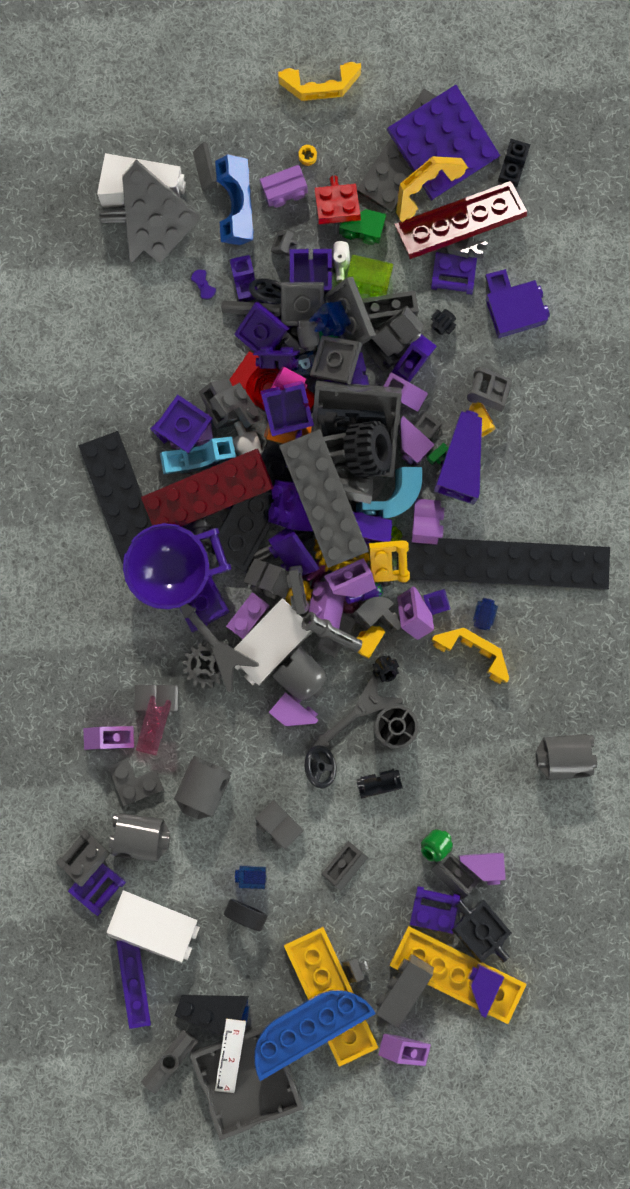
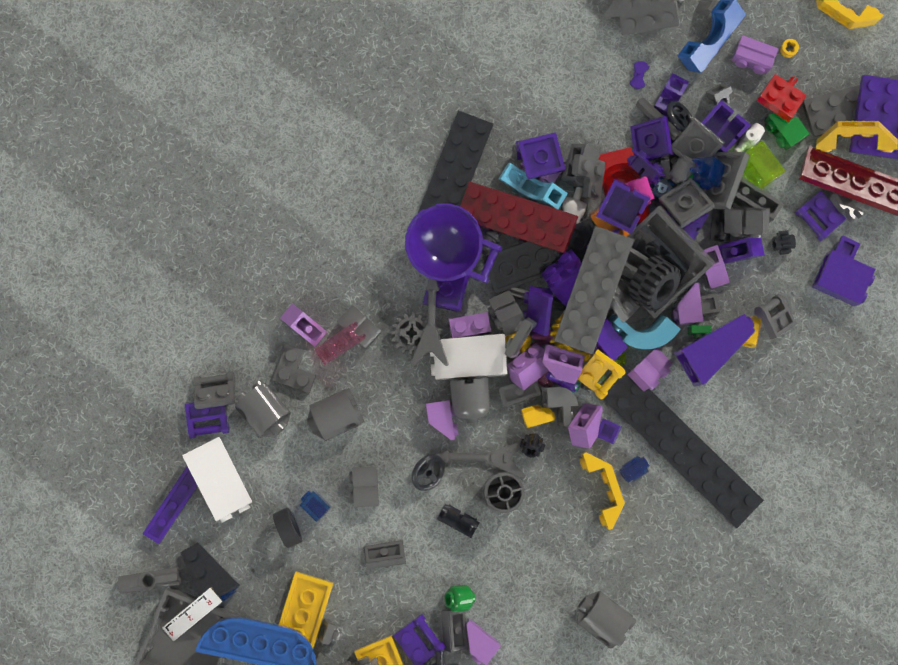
camera: 45 degrees right, 0 degrees up
(324, 628) = (514, 380): dark grey pin -> none

